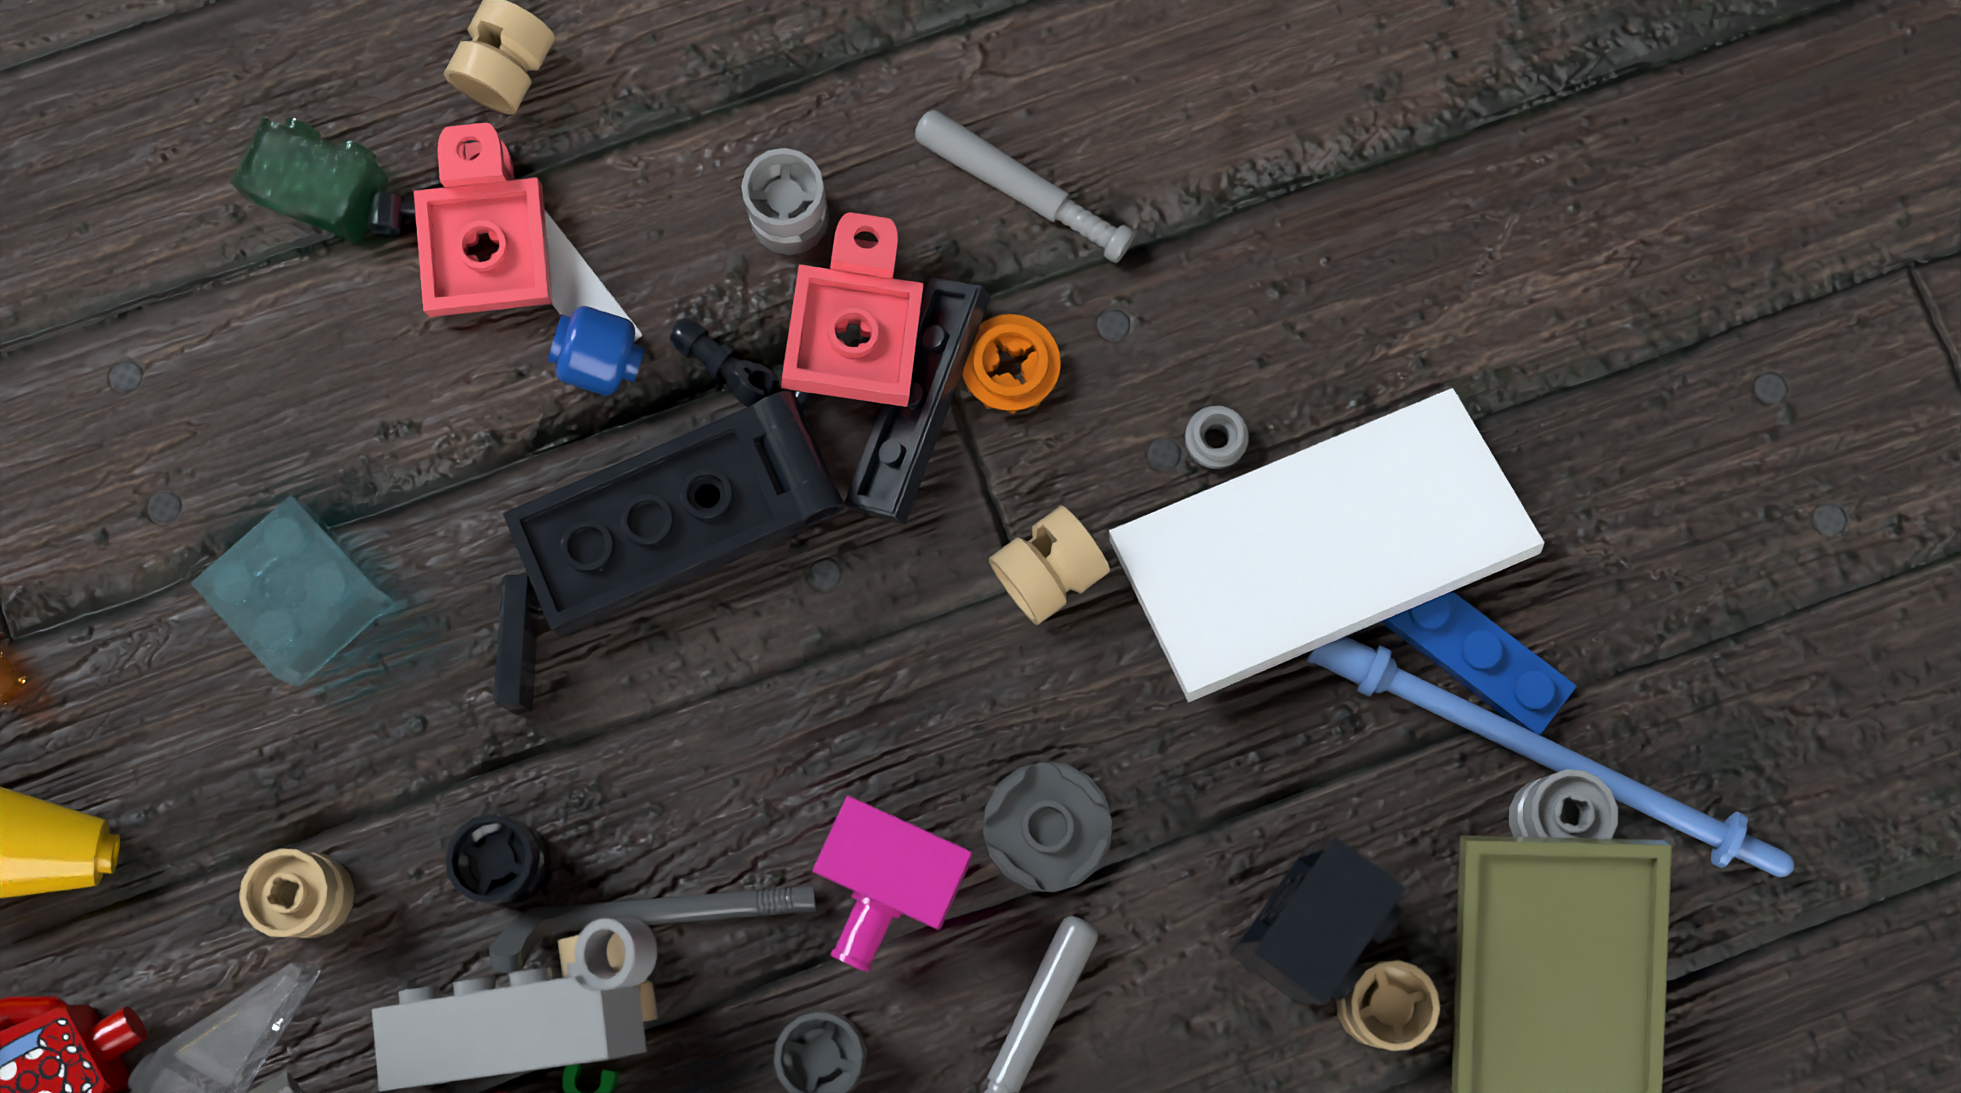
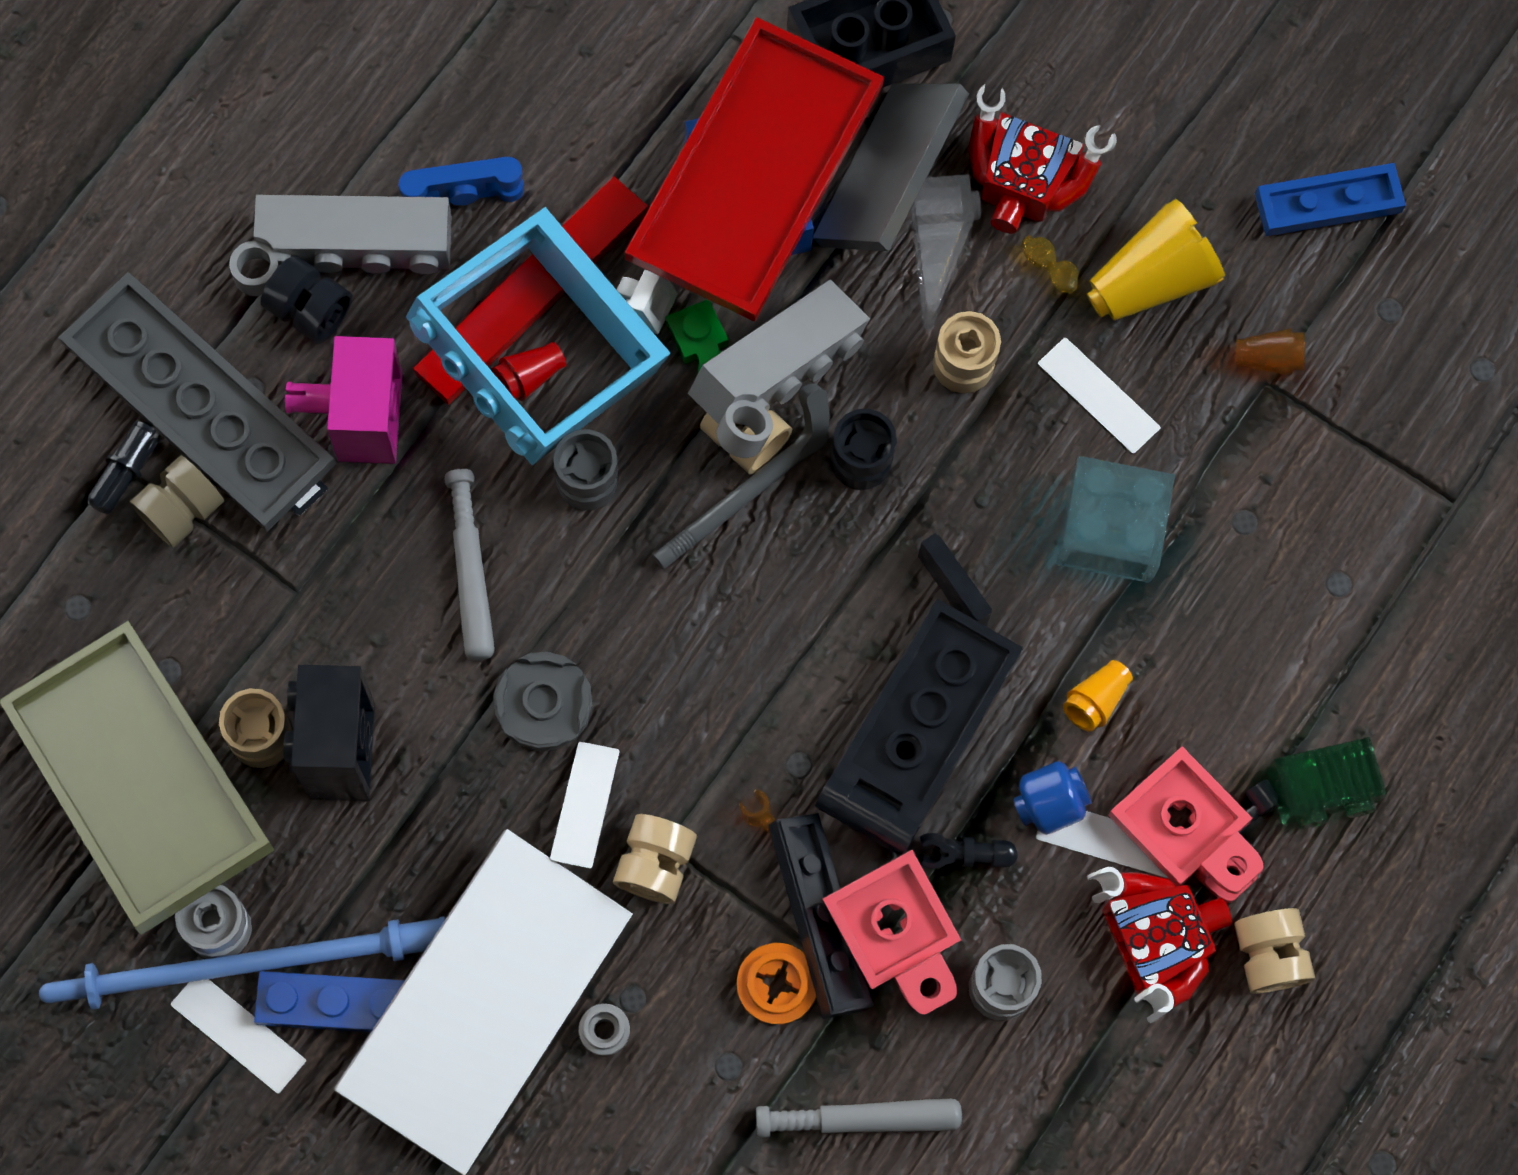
camera: 140 degrees right, 5 degrees down
(120, 921) = (1042, 255): none -> clear yellow piece
(196, 755) = (1099, 395): none -> white sticker
(466, 423) = (1096, 697): none -> light orange cone
(598, 140) = (1160, 934): none -> torso
(891, 874) = (619, 596): dark pink brick -> none
(902, 535) = (761, 818): none -> clear orange hand
(1081, 676) = (584, 805): none -> white sticker
(1597, 699) = (237, 1033): none -> white sticker

